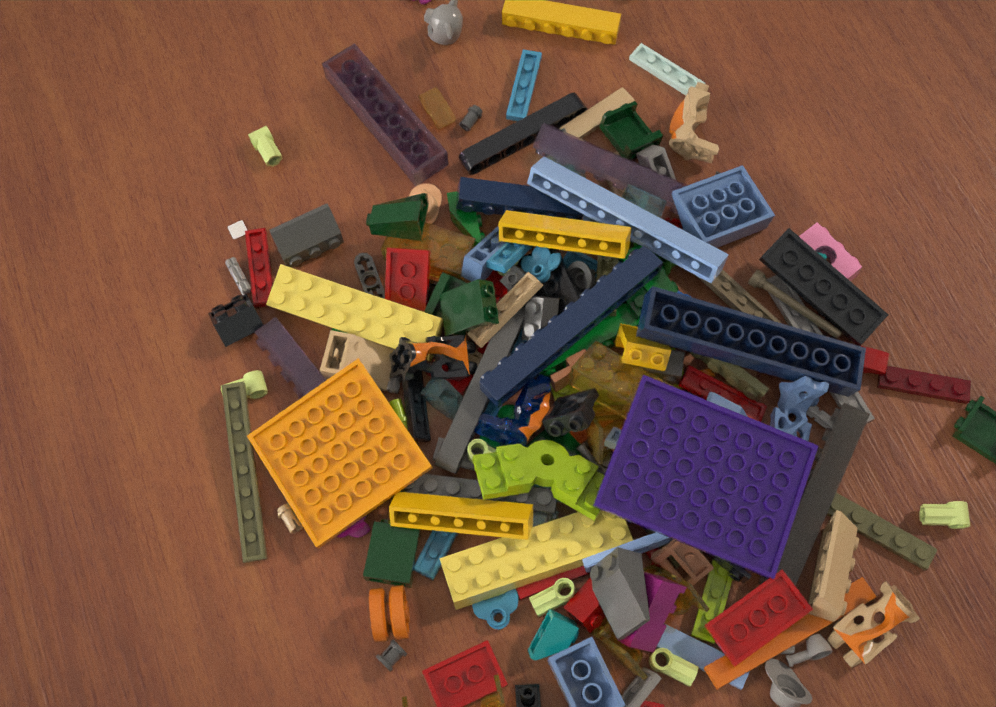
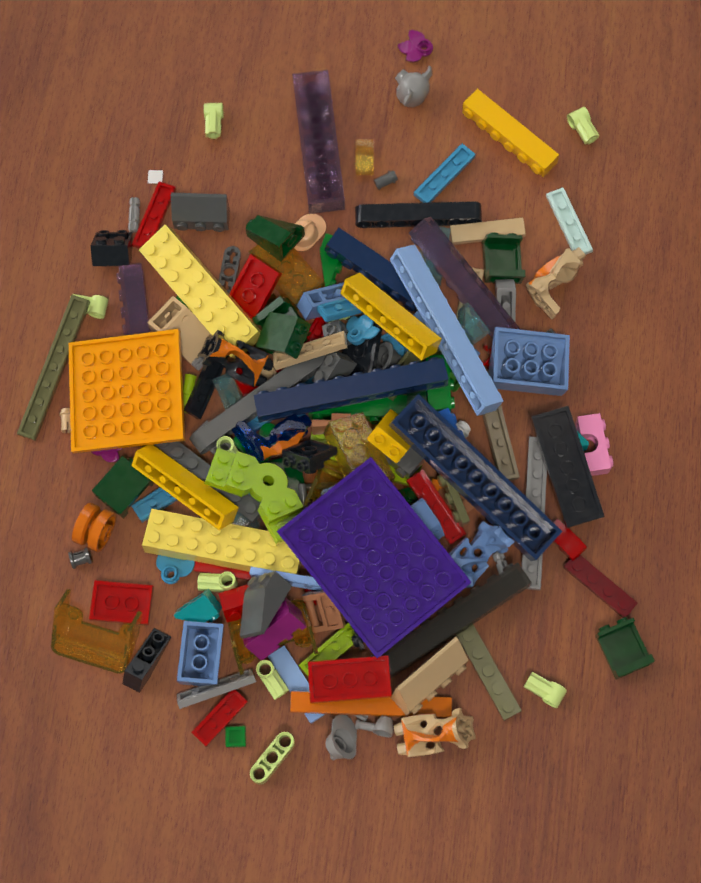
camera: 30 degrees right, 5 degrees up
(759, 280) = (523, 434): dark tan piece -> none

